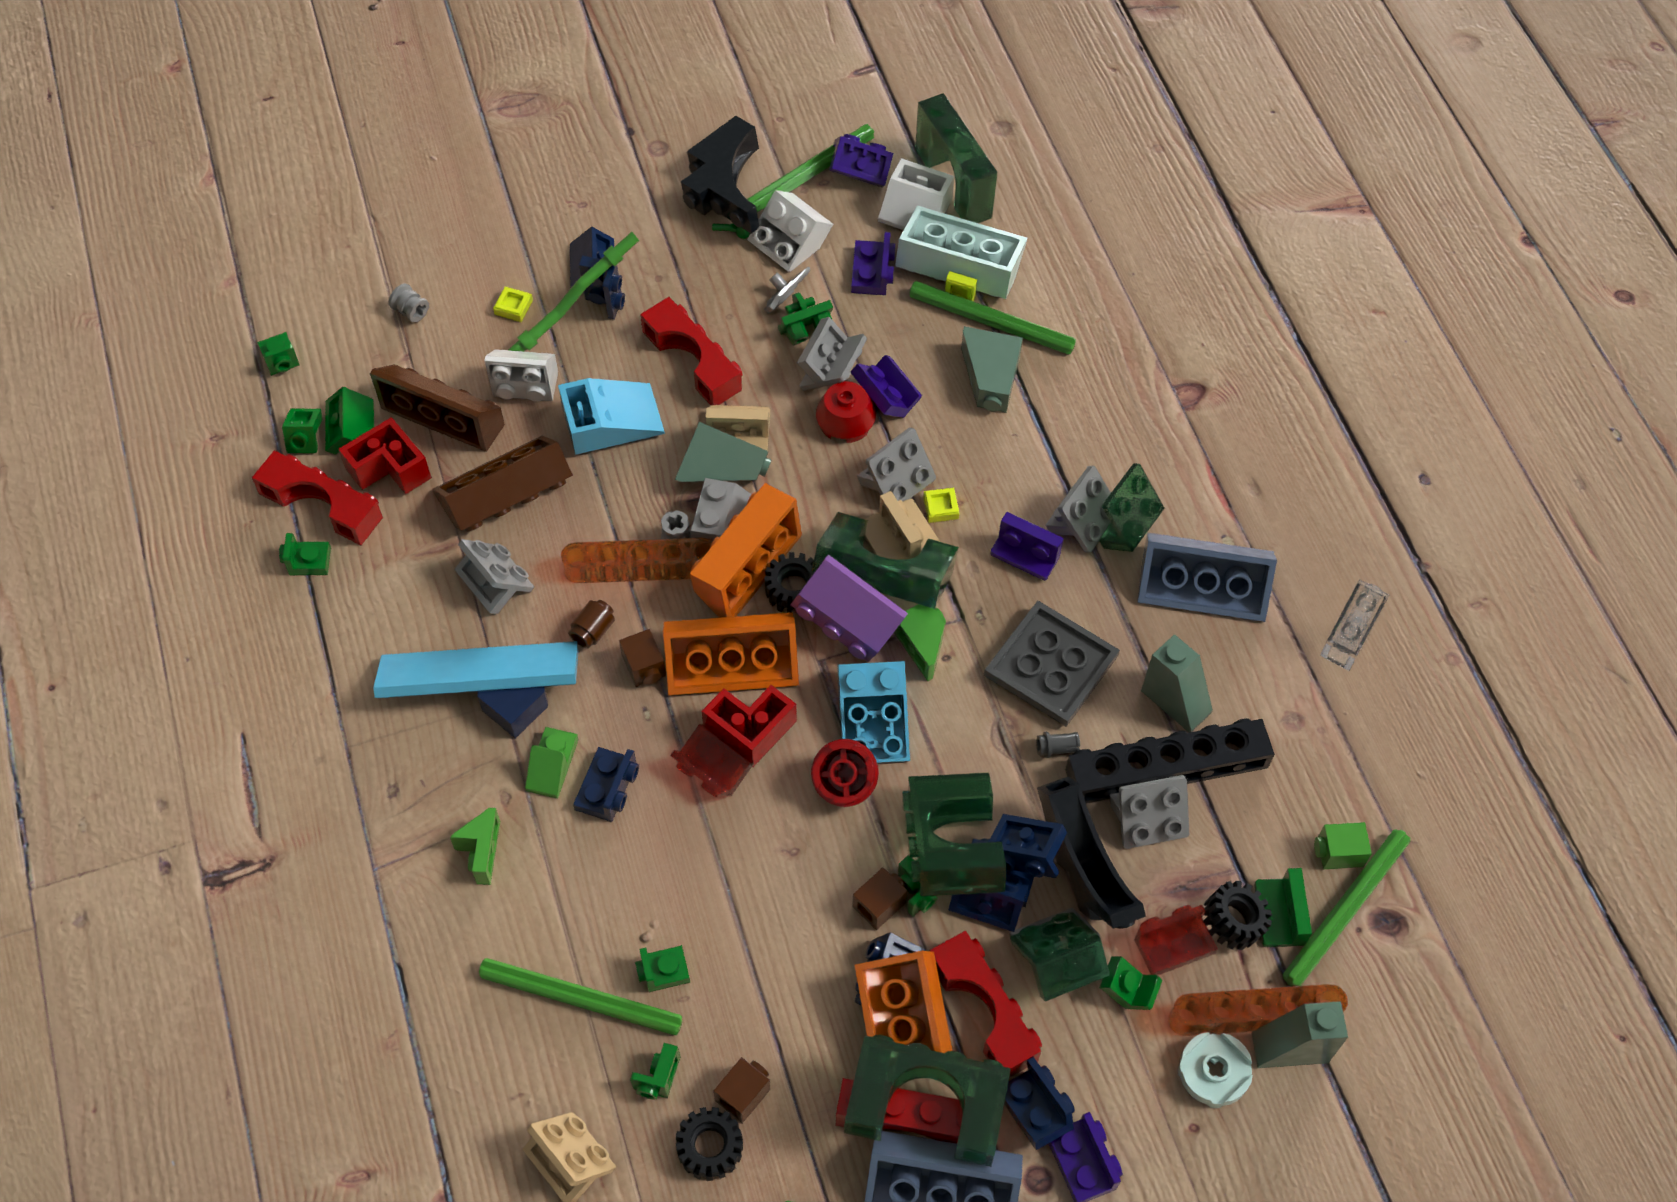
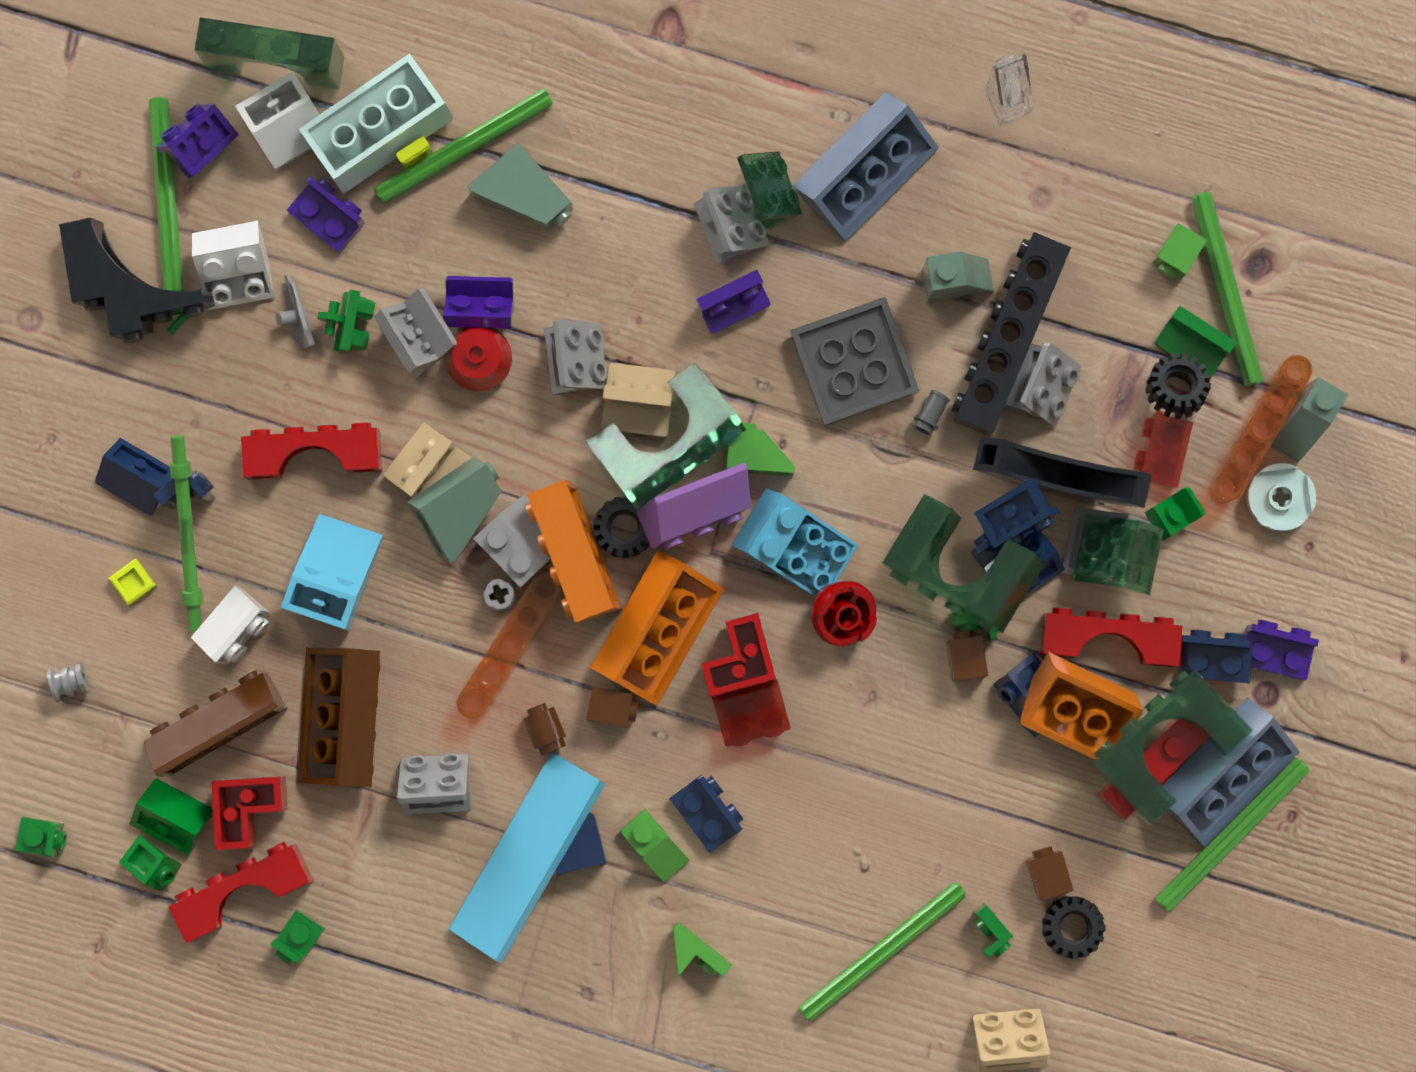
camera: 50 degrees left, 25 degrees up
(662, 968) = (904, 870): green bracket -> none
(941, 505) = (631, 340): neon yellow tile -> none

